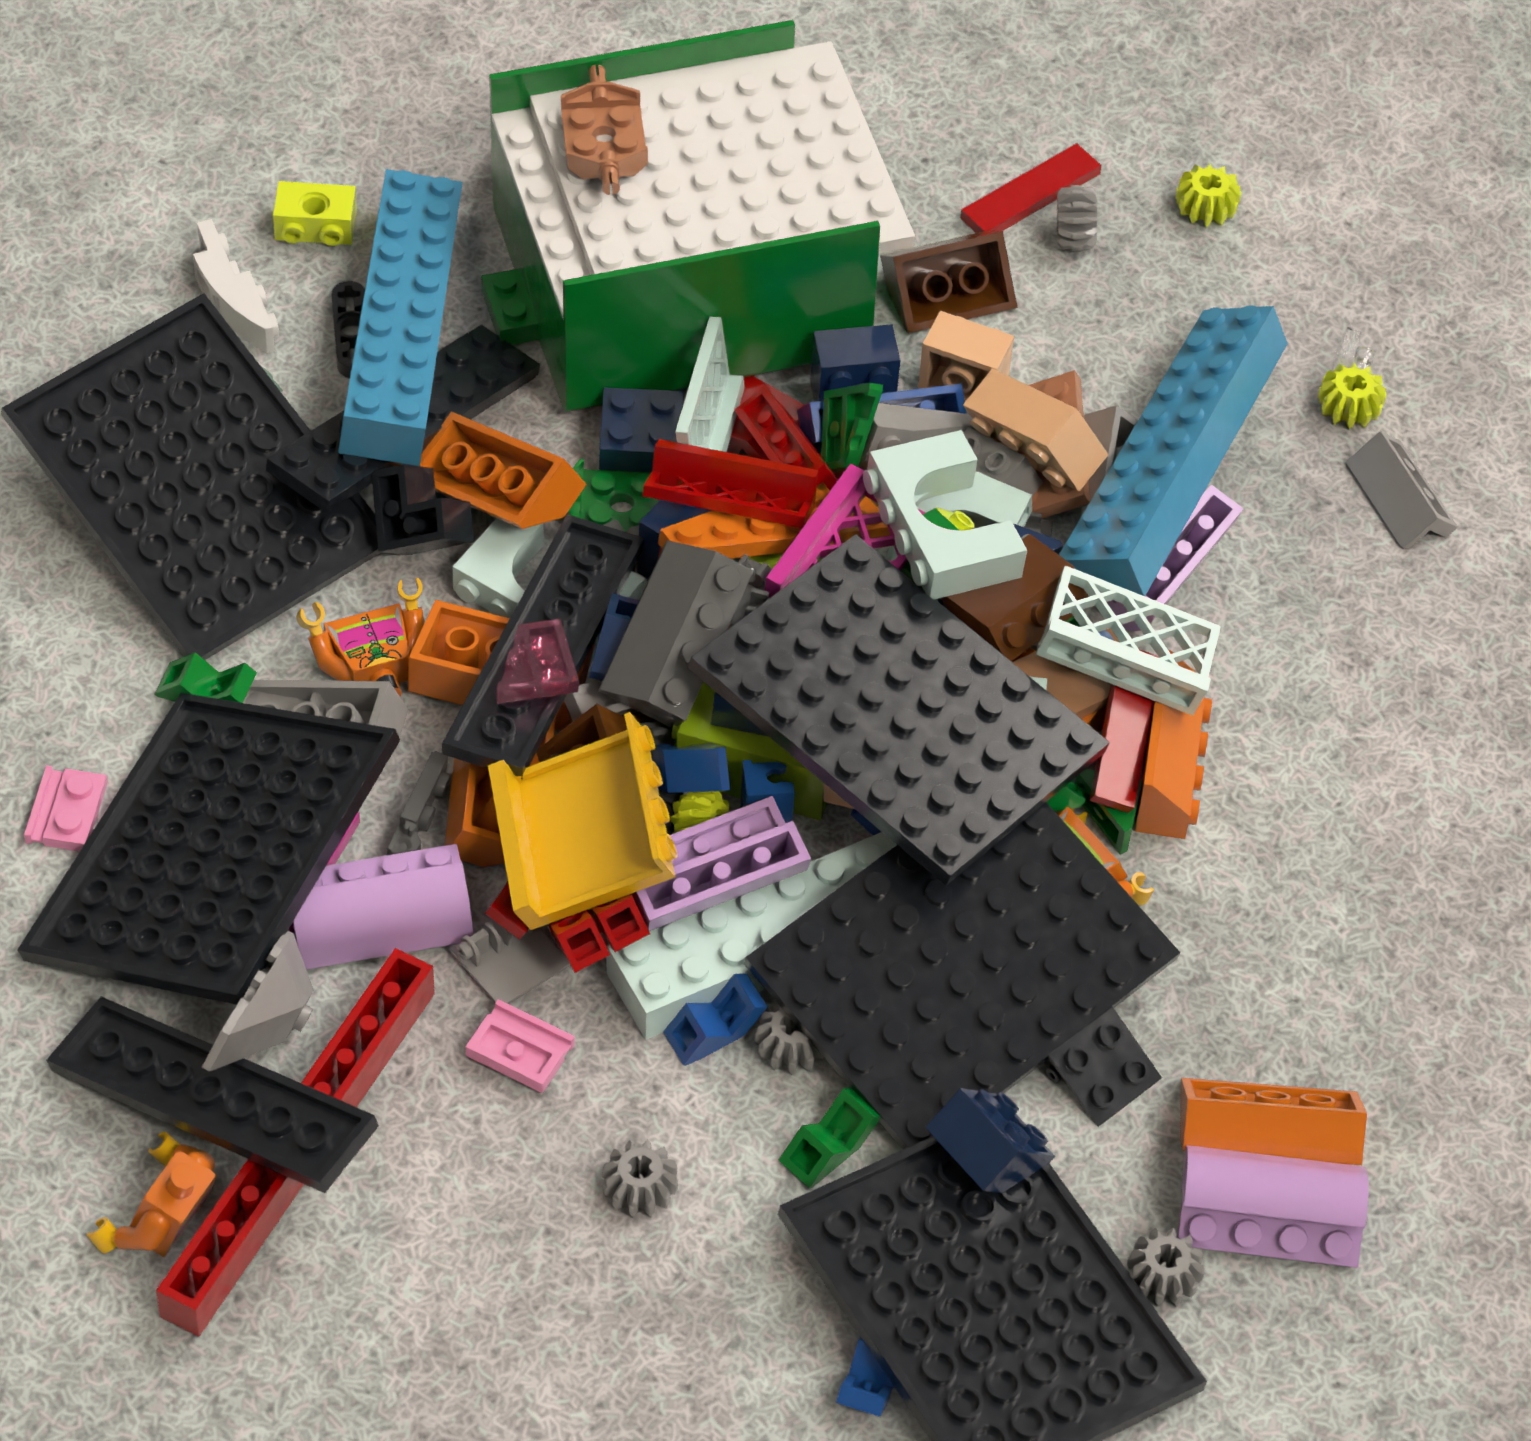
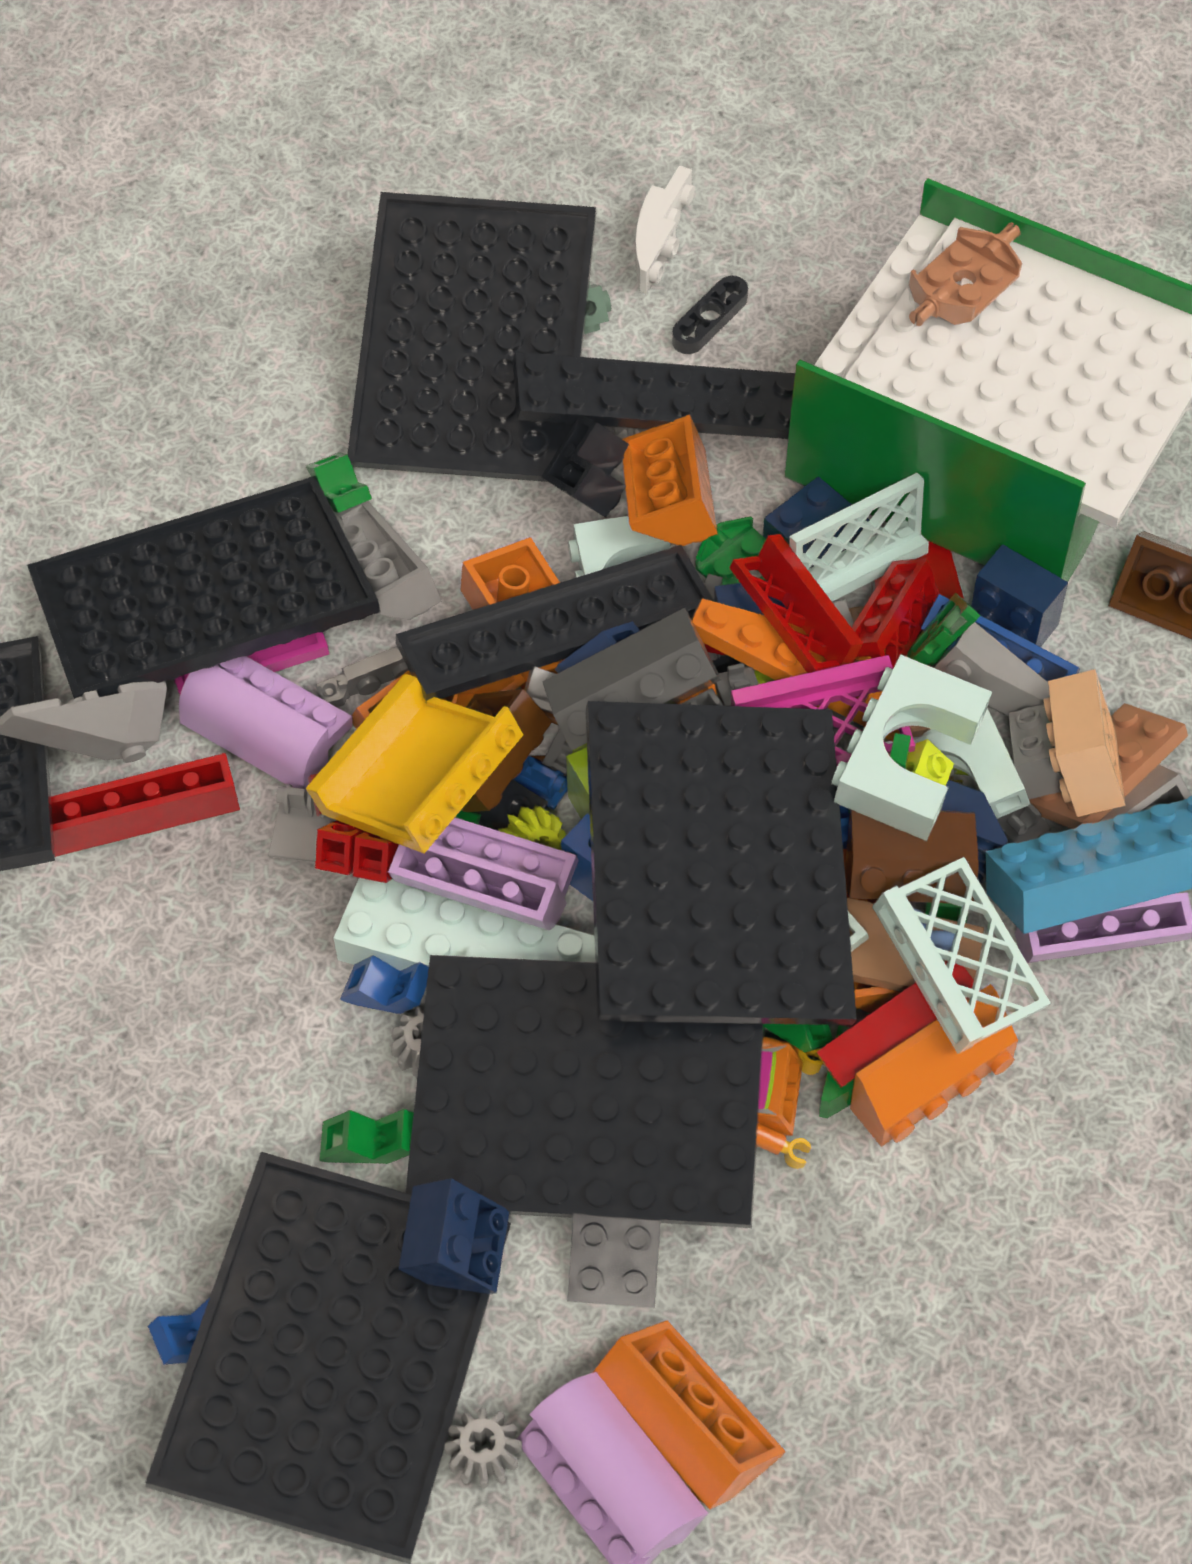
camera: 50 degrees right, 5 degrees up
(65, 808) = (166, 496): bright pink plate -> none
(315, 213) = (773, 216): neon yellow brick -> none
(367, 644) = (459, 532): torso -> none
(401, 318) = (725, 323): dark azure brick -> none
(520, 1046) = (246, 892): bright pink plate -> none
(538, 664) = (519, 630): clear pink wing -> none
(640, 1192) = (227, 1054): light grey gear -> none
(692, 768) = (550, 790): blue slope -> none
(962, 353) = (1108, 642): light nougat brick -> none

